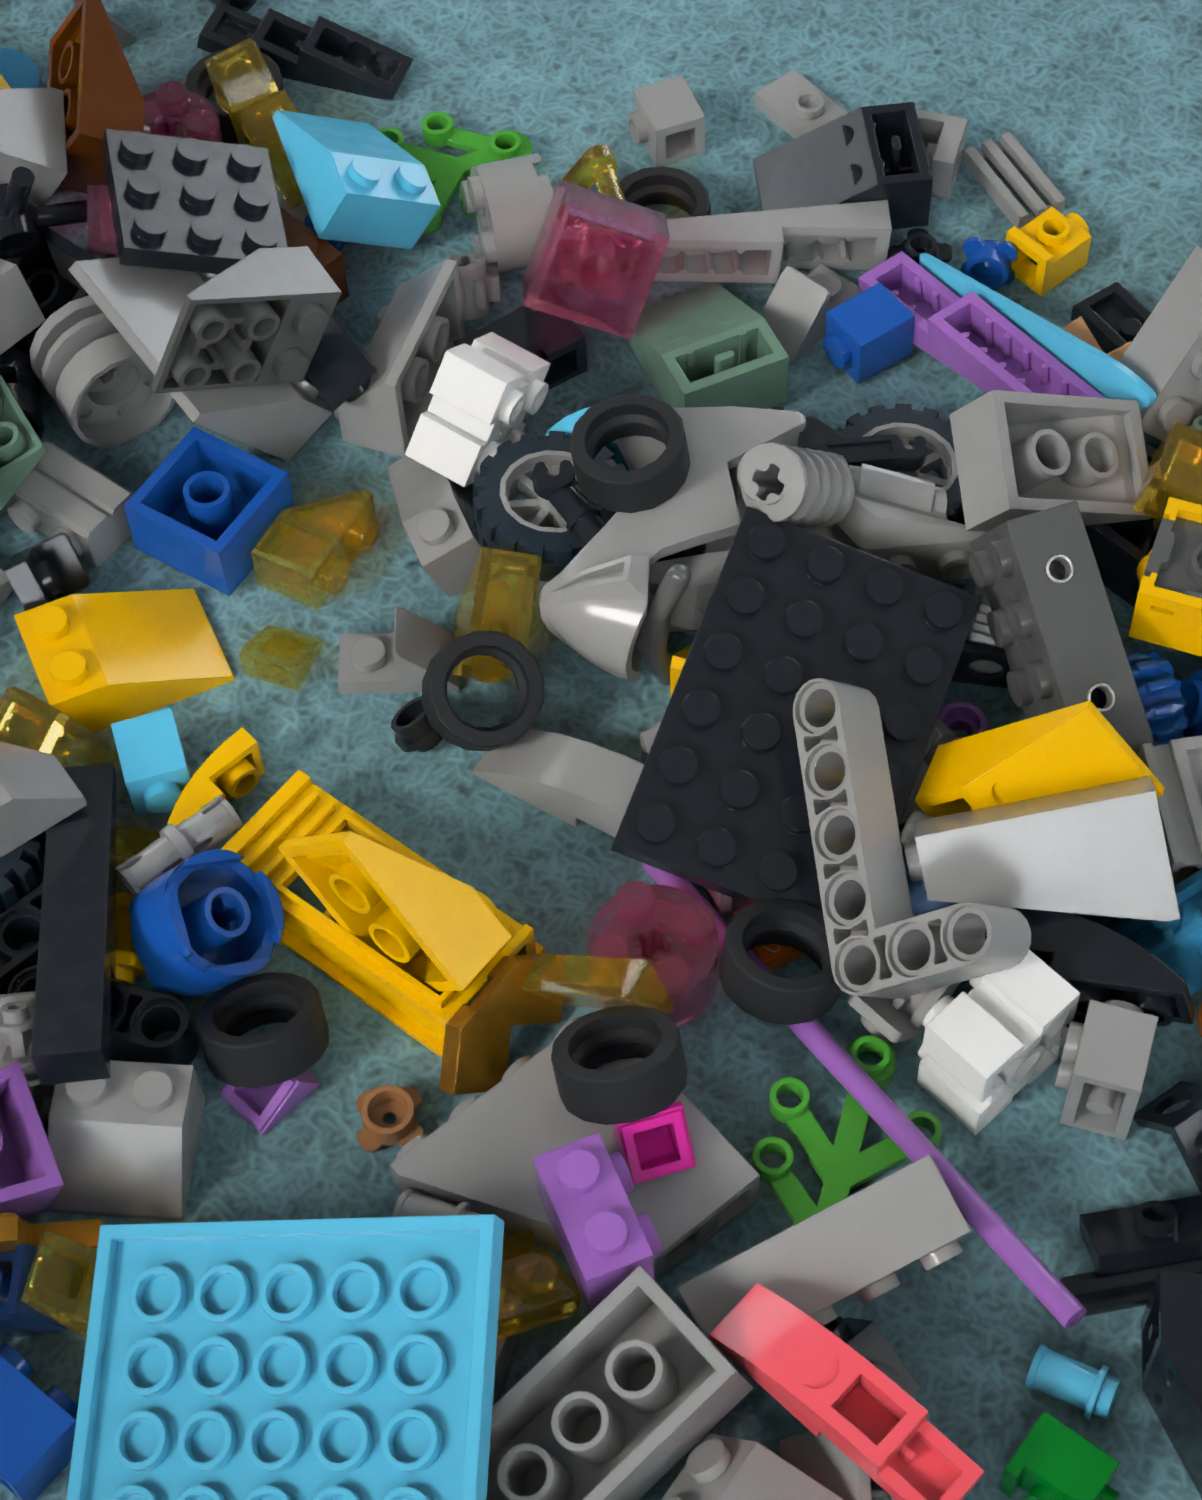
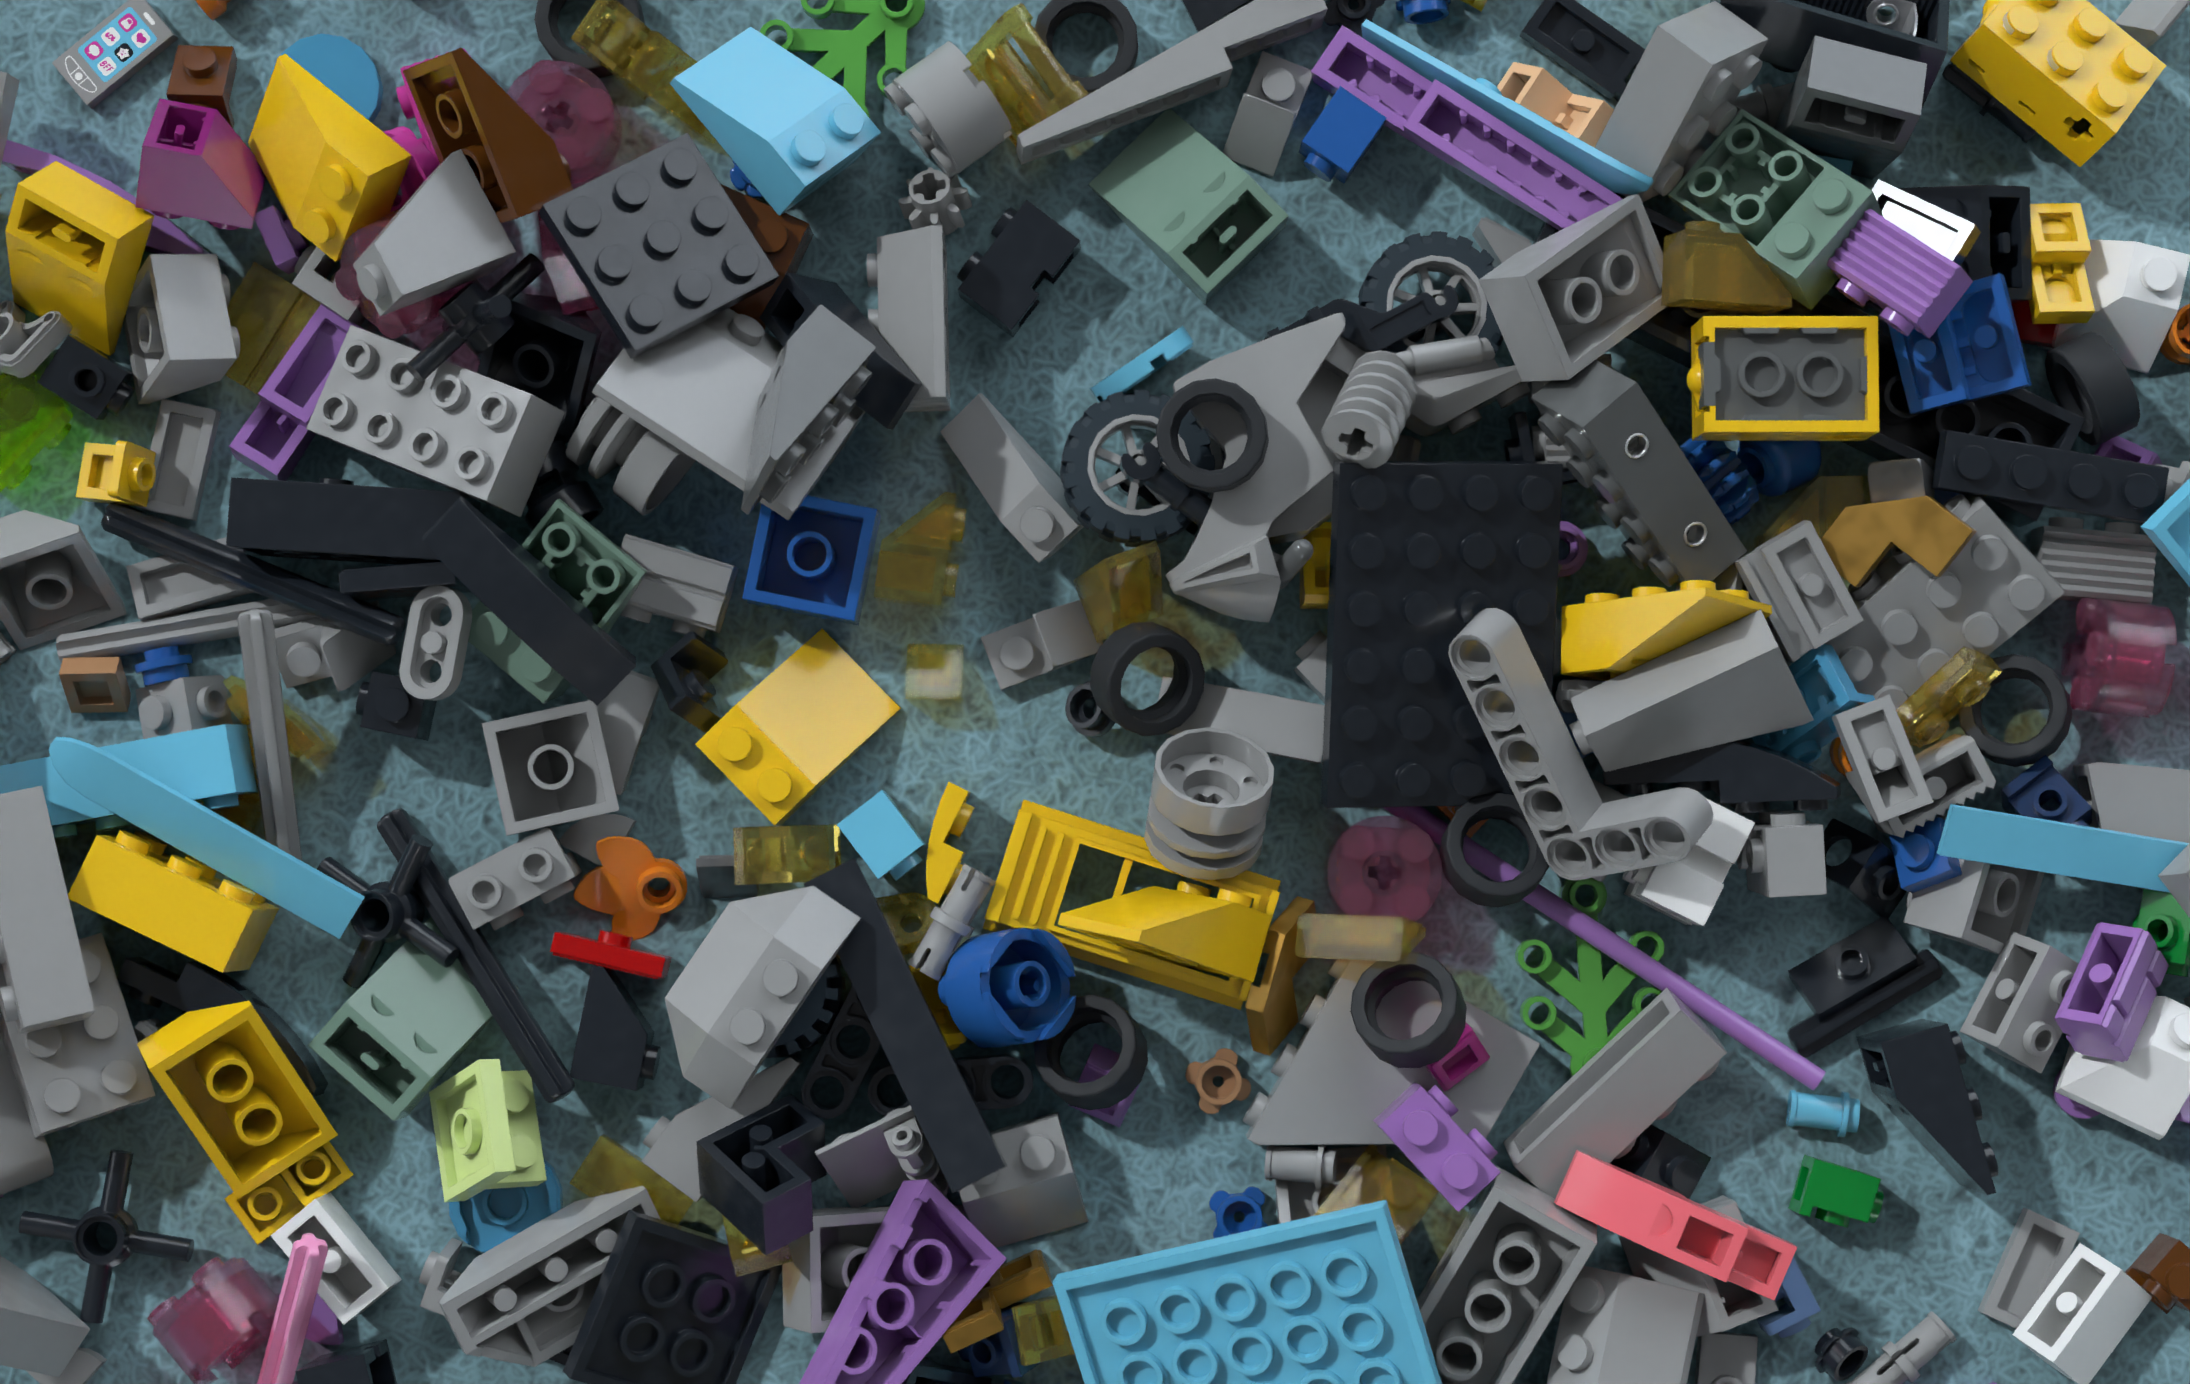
camera: 25 degrees left, 30 degrees up
(477, 406) = (1027, 378): white brick -> none
(493, 816) = (1208, 803): none -> light grey wheel
(595, 259) = (1070, 172): clear pink brick -> none

